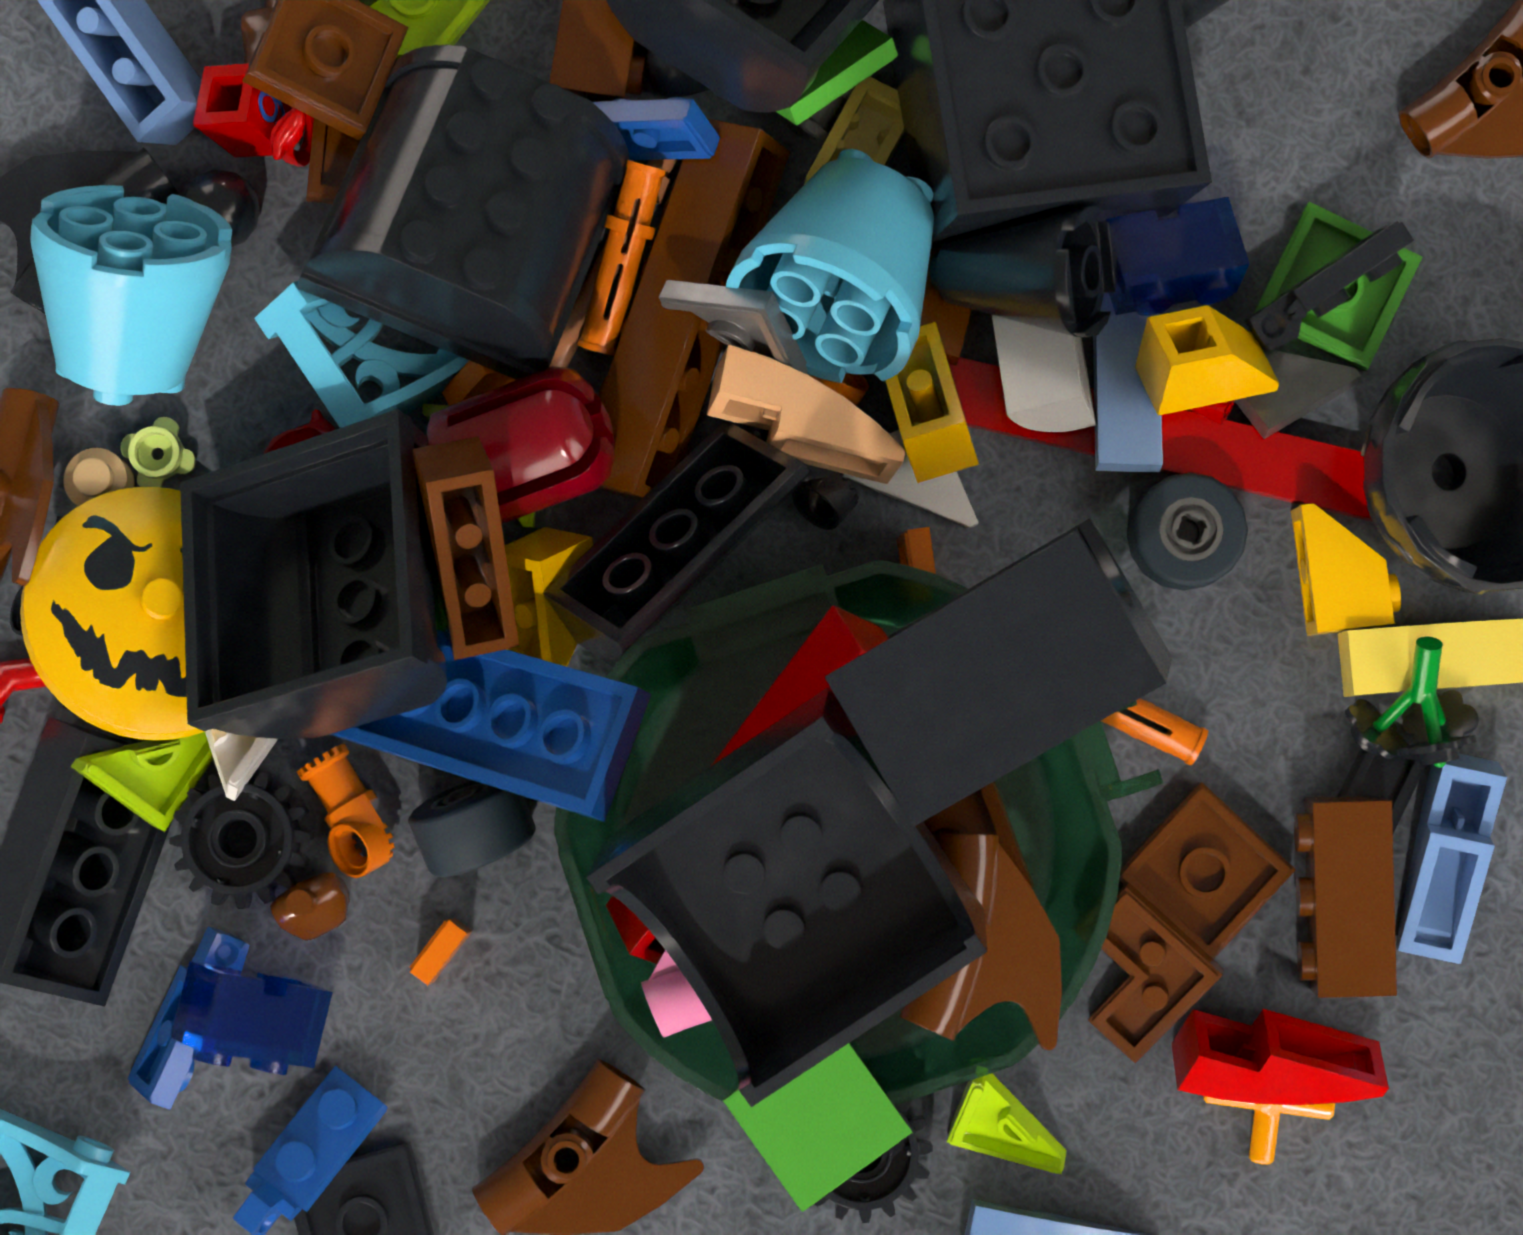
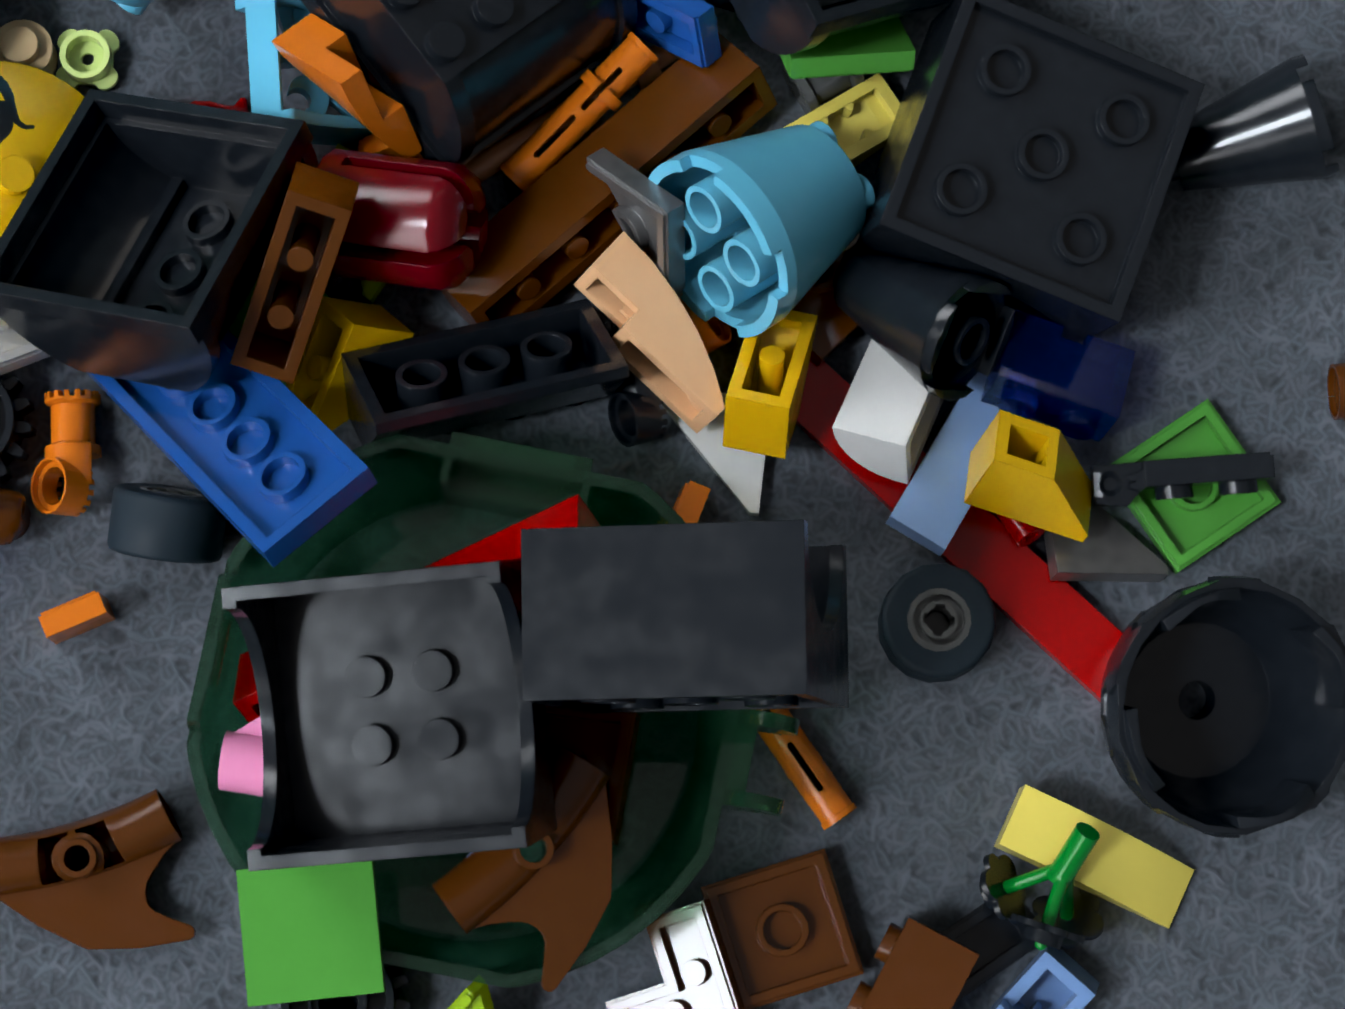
camera: 25 degrees right, 5 degrees down
(385, 341) = (330, 63): none -> orange slope
(1340, 576) = (1050, 738): yellow slope -> none

